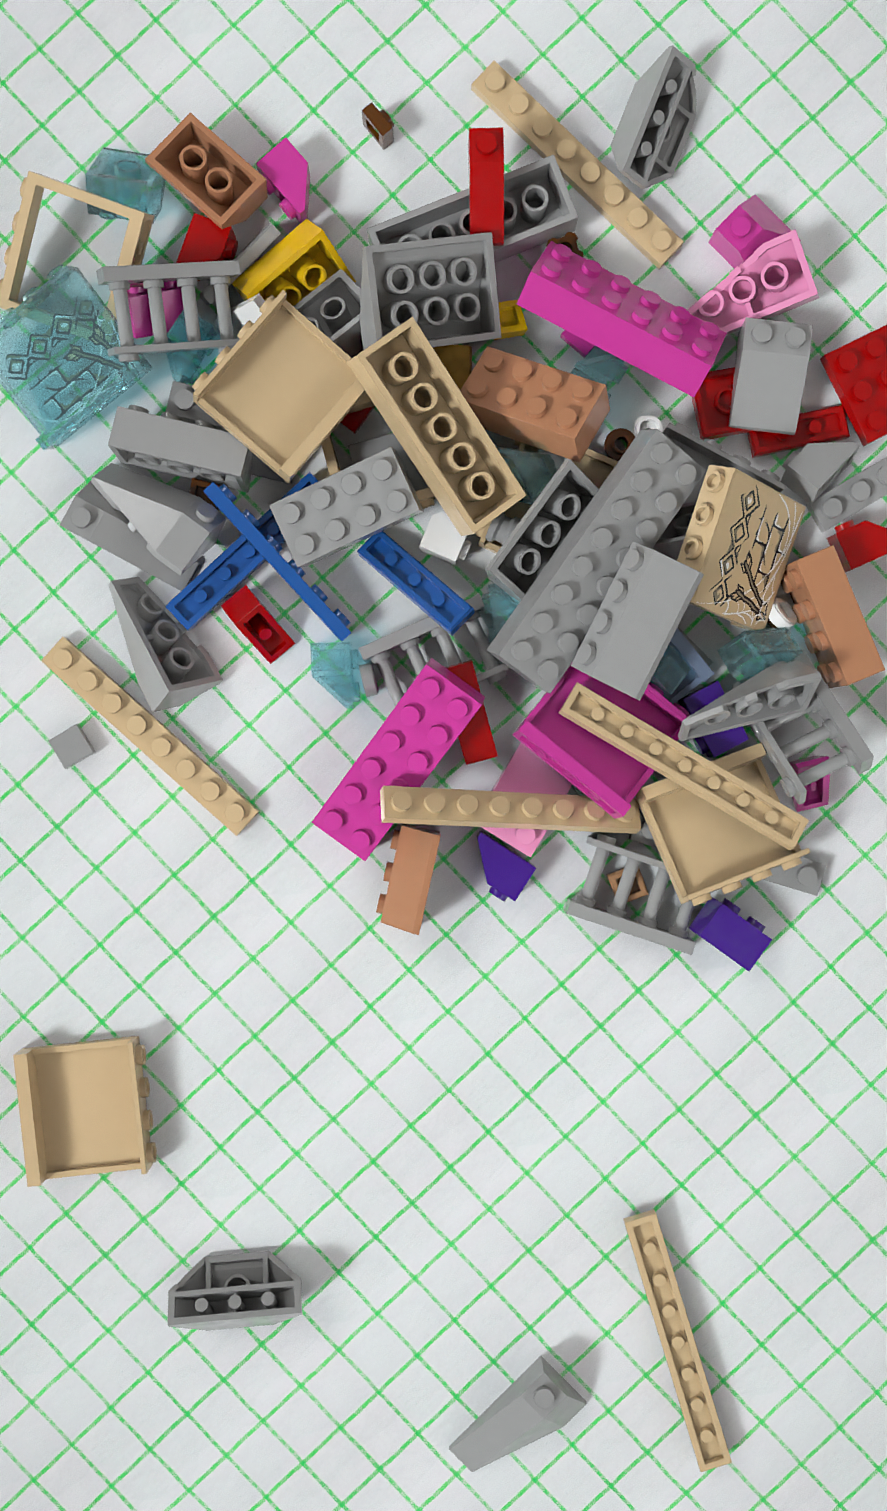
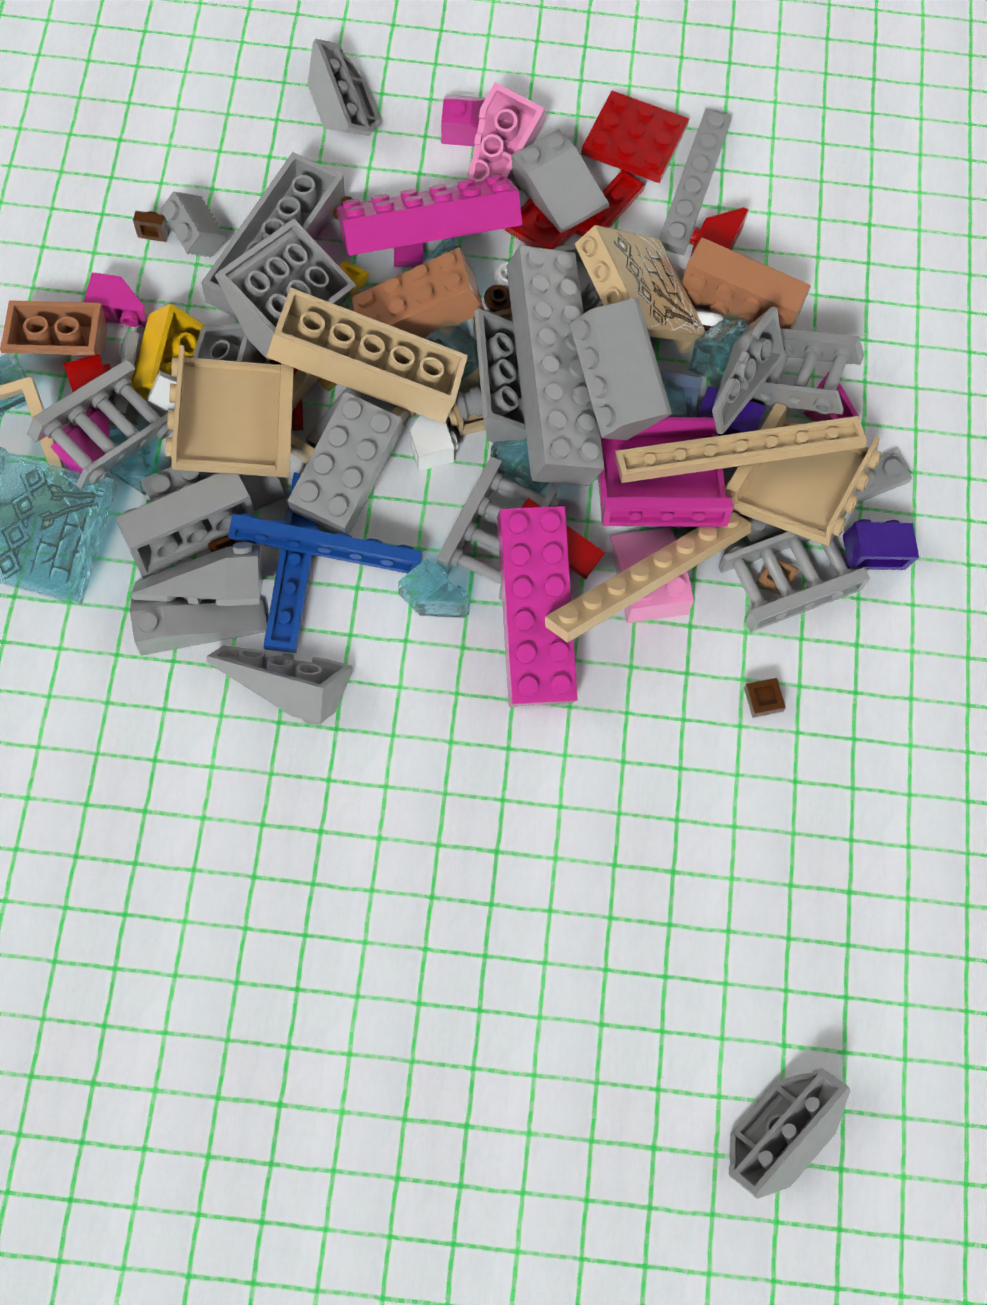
camera: 45 degrees left, 20 degrees down
(71, 746) = (274, 809): light grey tile -> none
(84, 1108) = (529, 1089): tan panel -> none
(150, 735) = (330, 752): tan plate -> none
(257, 624) = (345, 604): red slope -> none
(369, 679) = (464, 578): light grey tile -> none
(408, 877) = (621, 688): nougat slope -> none
(414, 155) = (193, 224): none -> light grey brick
(416, 582) = (437, 484): blue tile -> none
(486, 182) = (261, 191): red slope -> none
(503, 869) = (679, 631): dark purple slope -> none
(521, 974) = (764, 697): none -> reddish brown plate
(576, 164) = (343, 159): tan plate -> none
(817, 467) = (643, 211): light grey slope -> none

